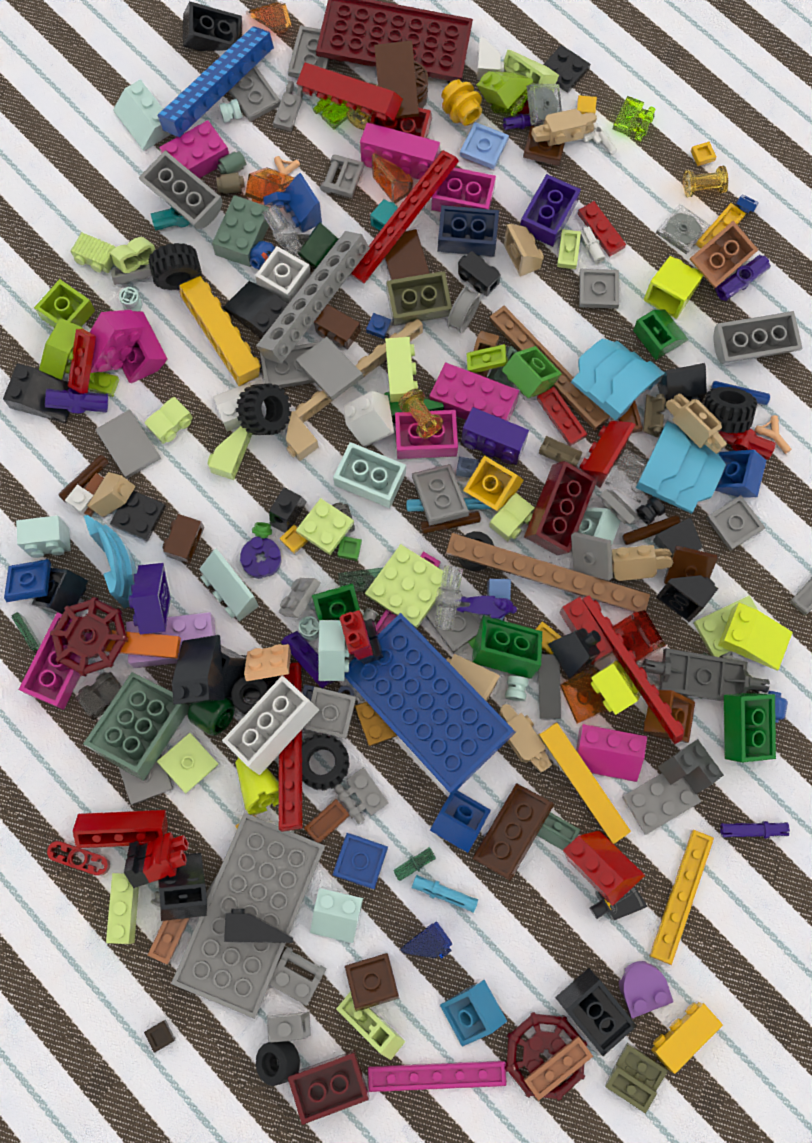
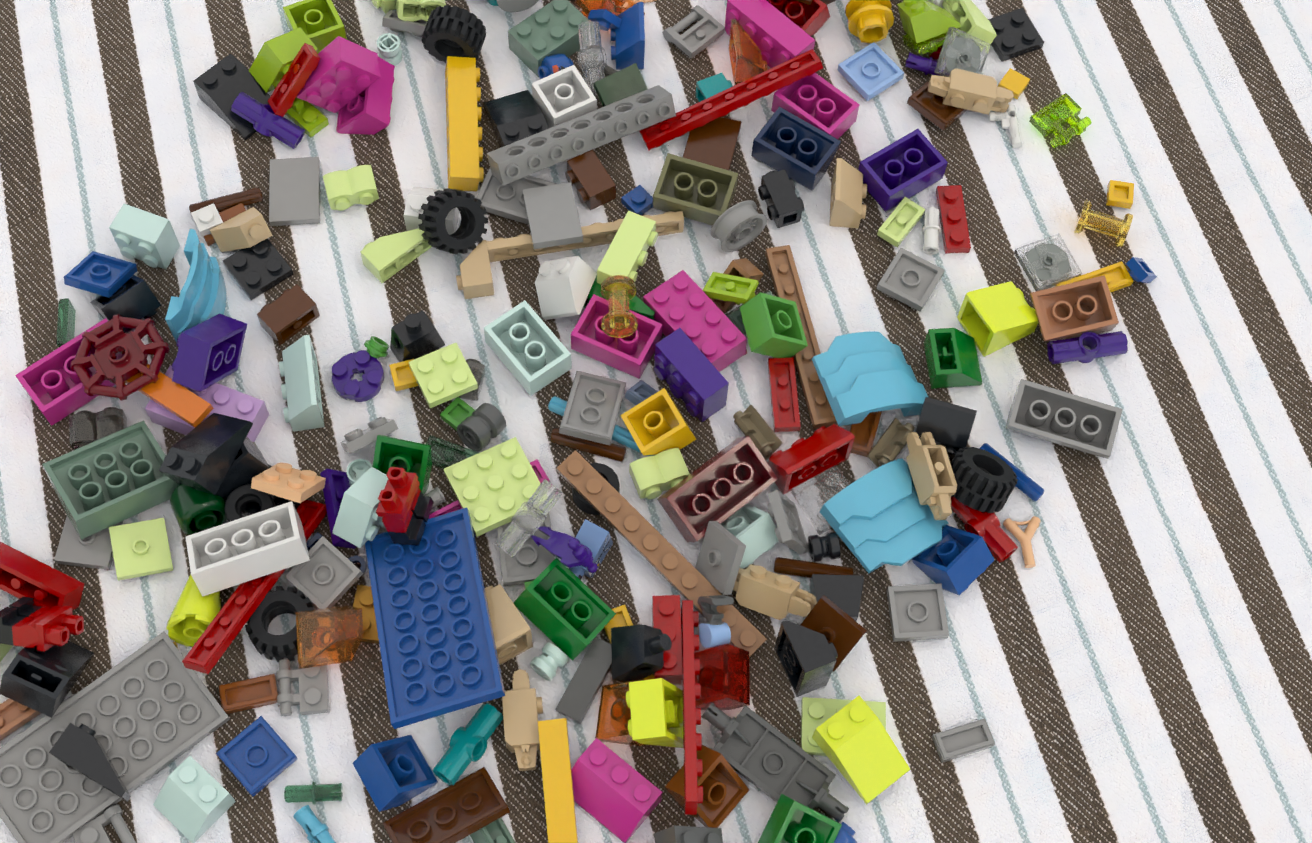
camera: 25 degrees right, 10 degrees down
(361, 752) = (328, 635): none -> clear orange slope
(372, 549) = (482, 425): none -> dark grey wheel
(497, 777) = (468, 744): none -> teal piece
(617, 608) = (714, 631): none -> leg

